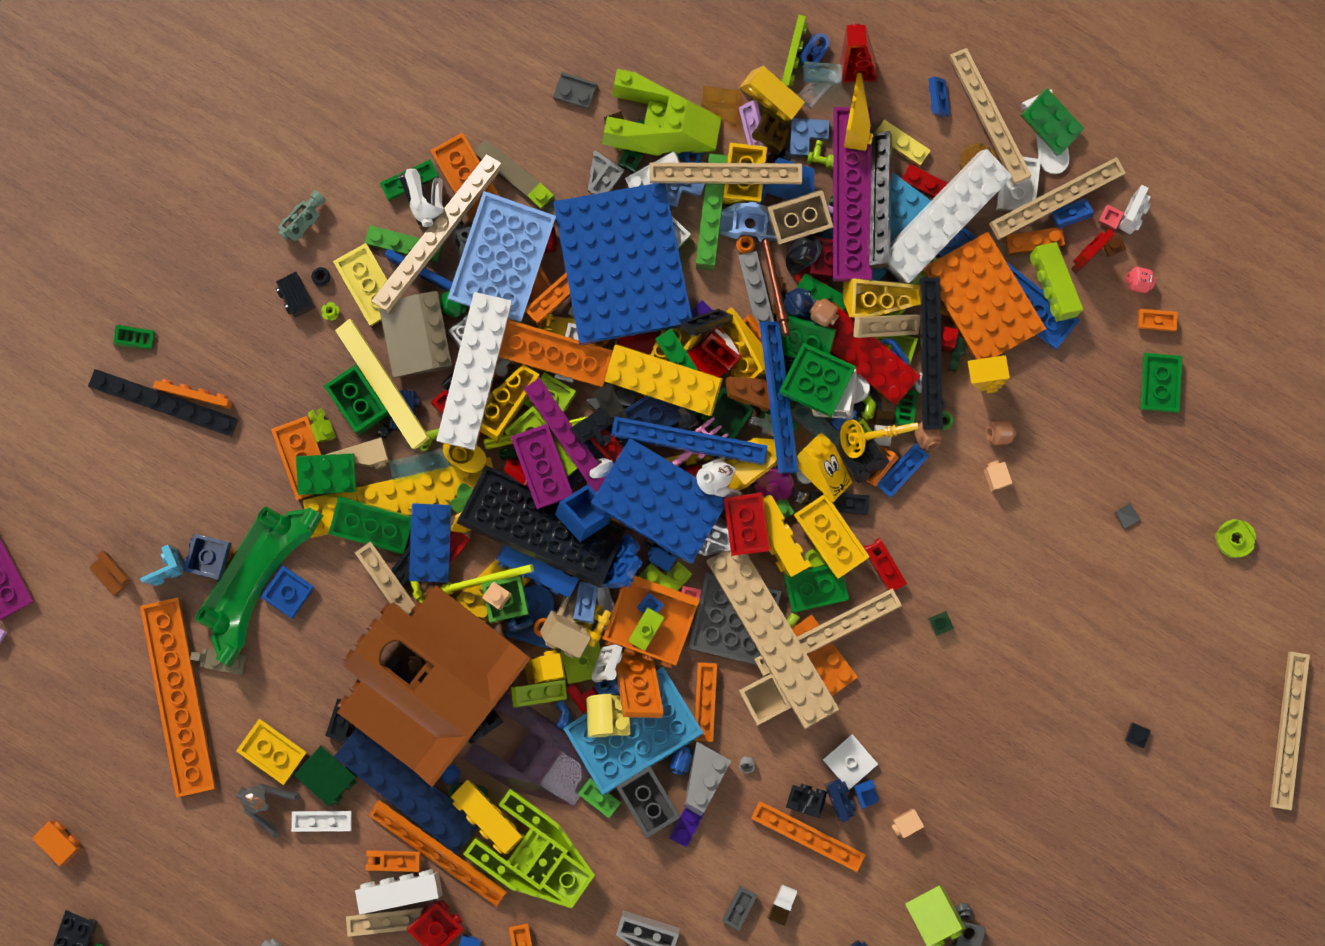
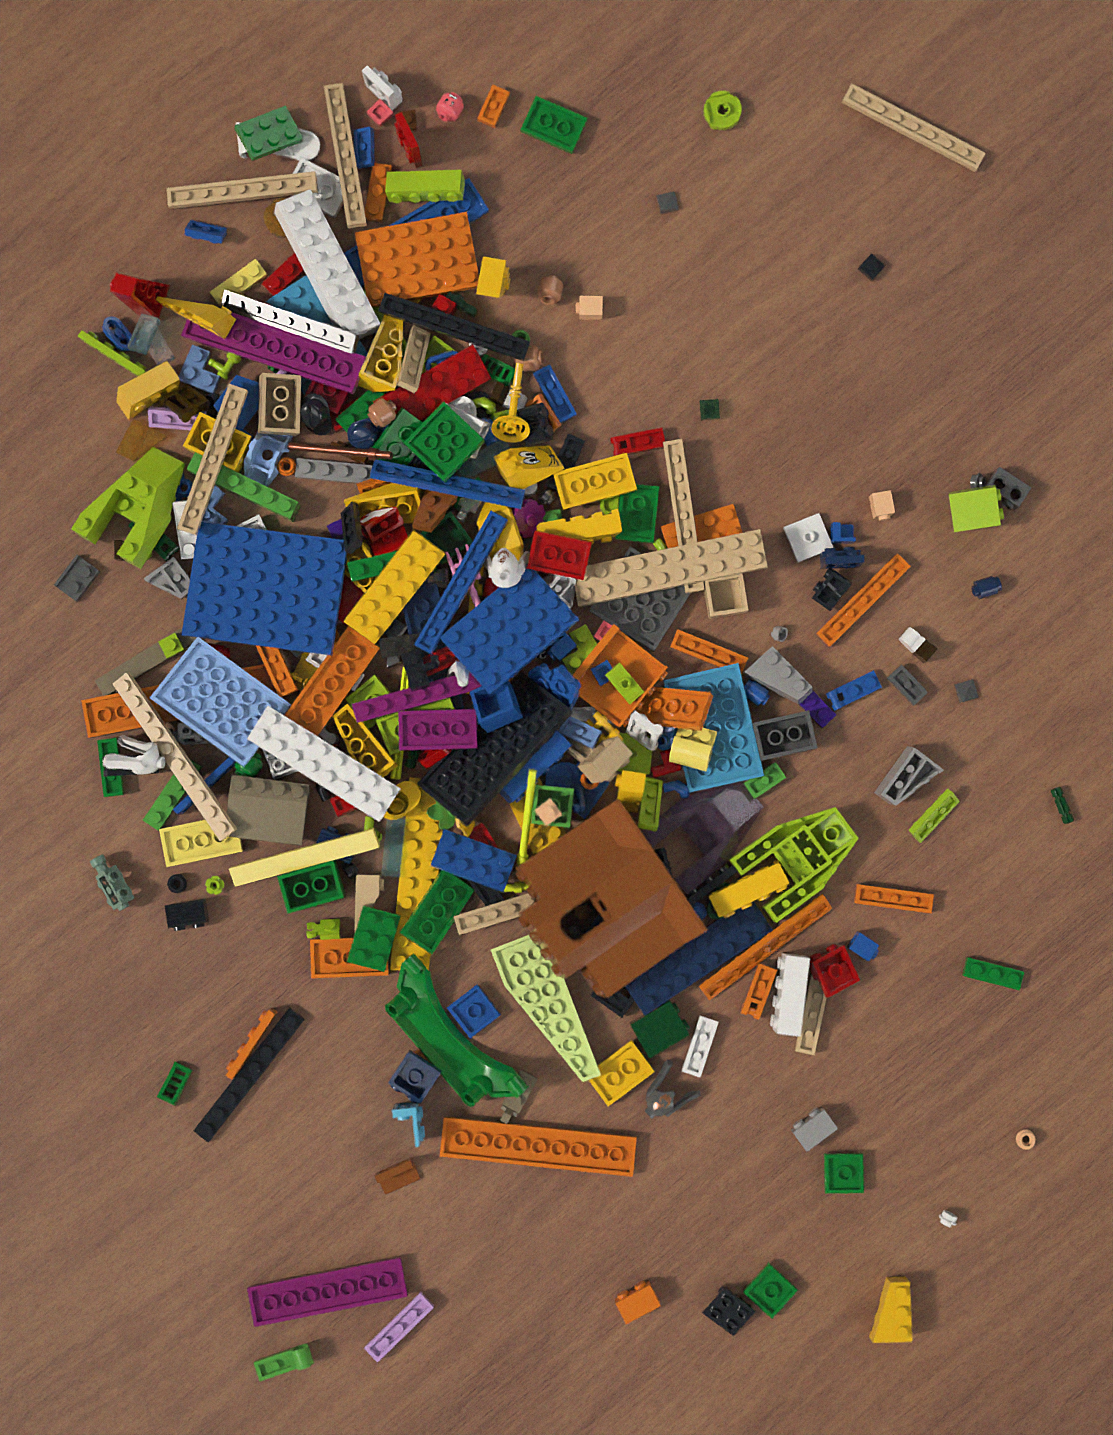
camera: 70 degrees left, 5 degrees up
(316, 658) = (546, 1002): none -> yellowish green wing
(481, 778) = (711, 883): none -> black plate
(716, 857) = (854, 690): none -> blue plate

